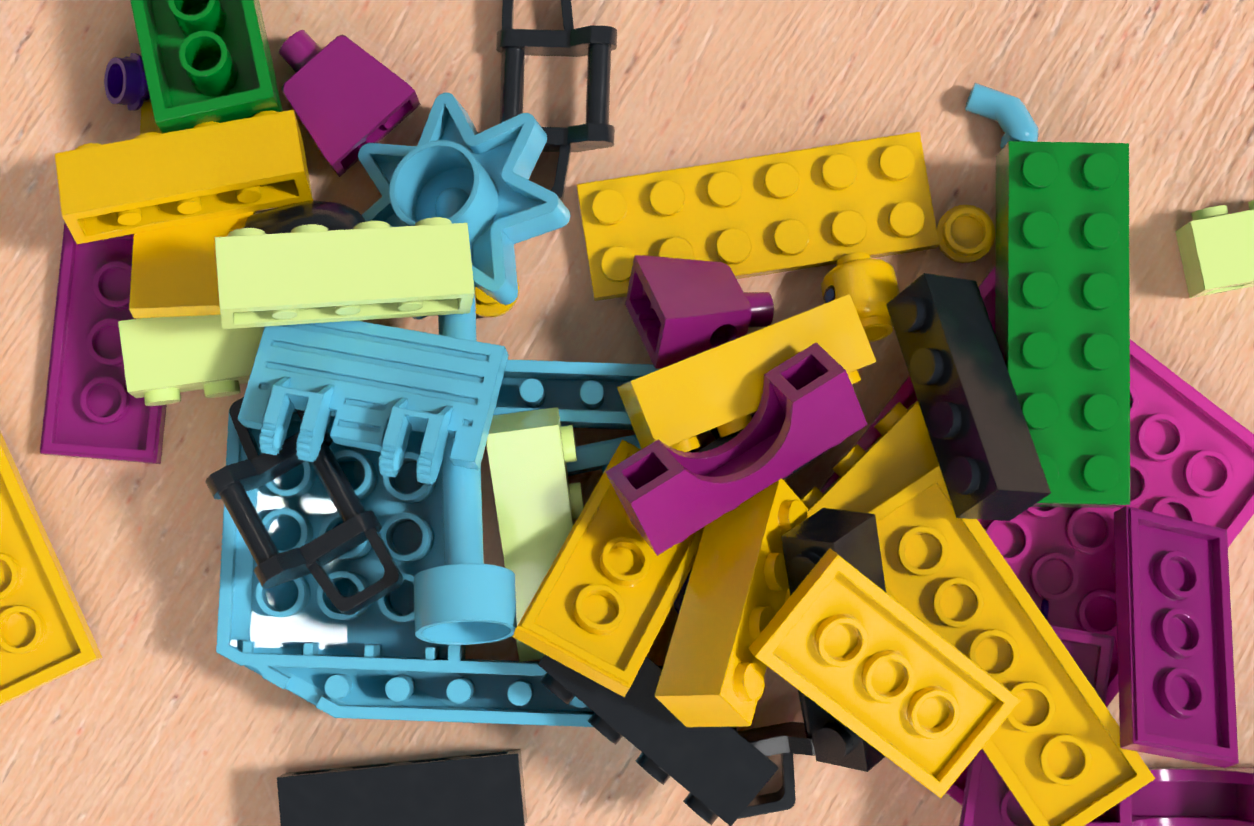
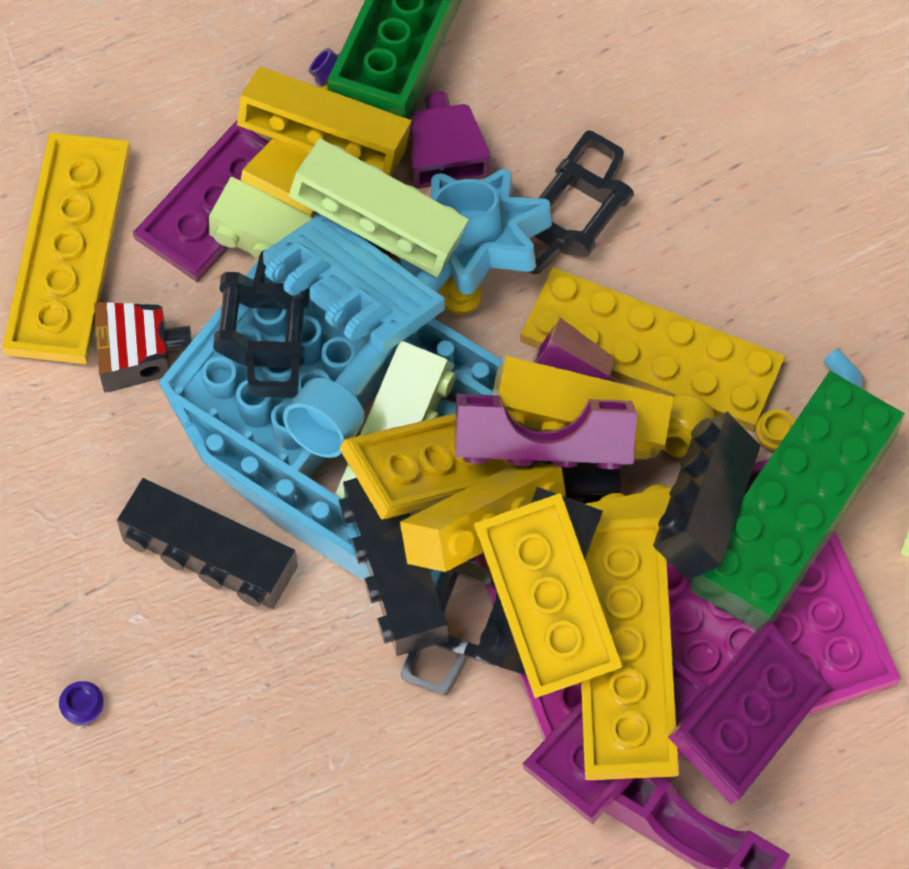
camera: 35 degrees right, 20 degrees down
(144, 601) = (135, 343): none -> torso

